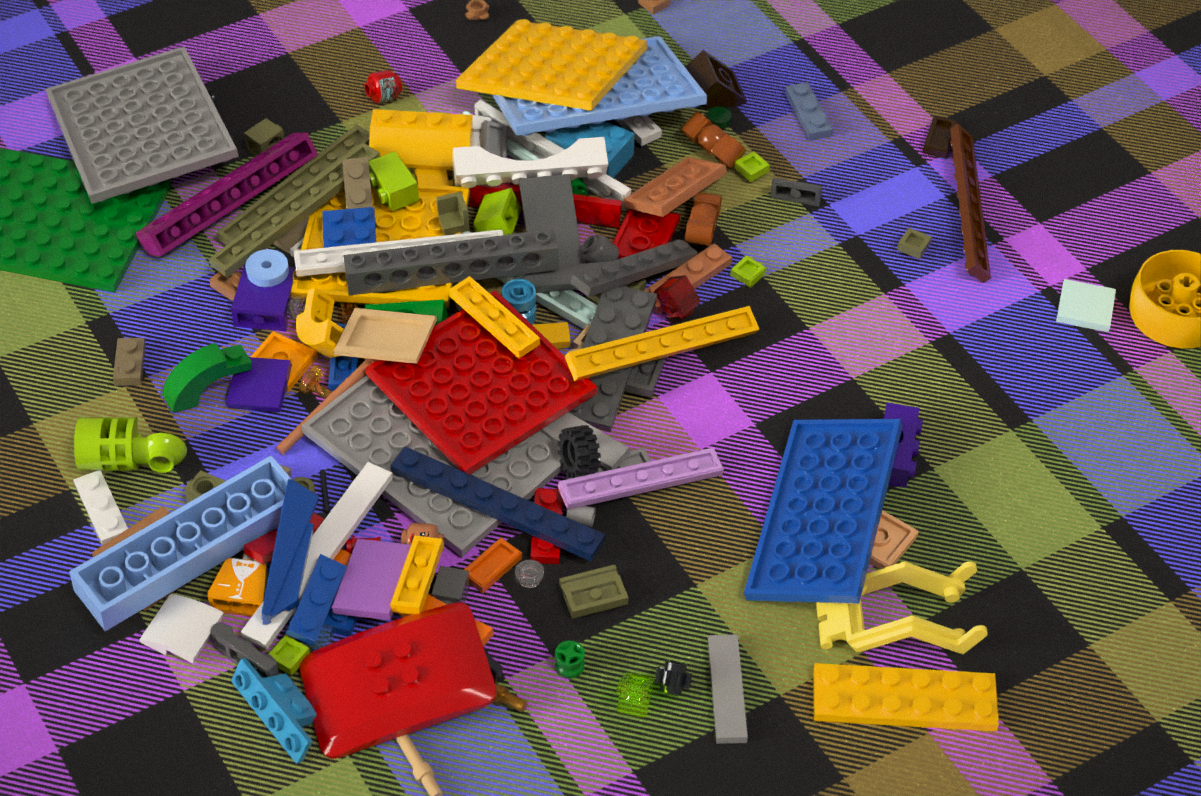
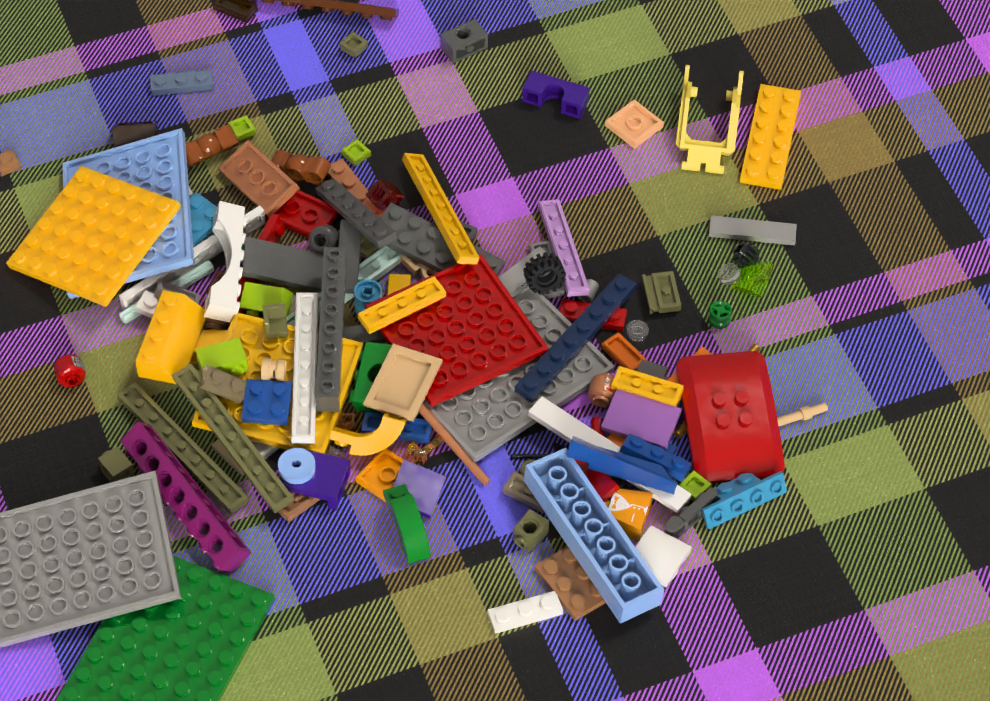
camera: 80 degrees left, 5 degrees up
(117, 446) = (475, 586): lime cylinder -> none
(129, 361) = (365, 587): dark tan plate -> none
(387, 224) = (273, 369): none -> tan wheel
(641, 664) = (729, 273): none -> clear tile
(796, 192) = (278, 106): dark grey slope -> none
(824, 511) = (615, 141): blue plate -> none
(956, 343) = (464, 41): none -> dark grey brick

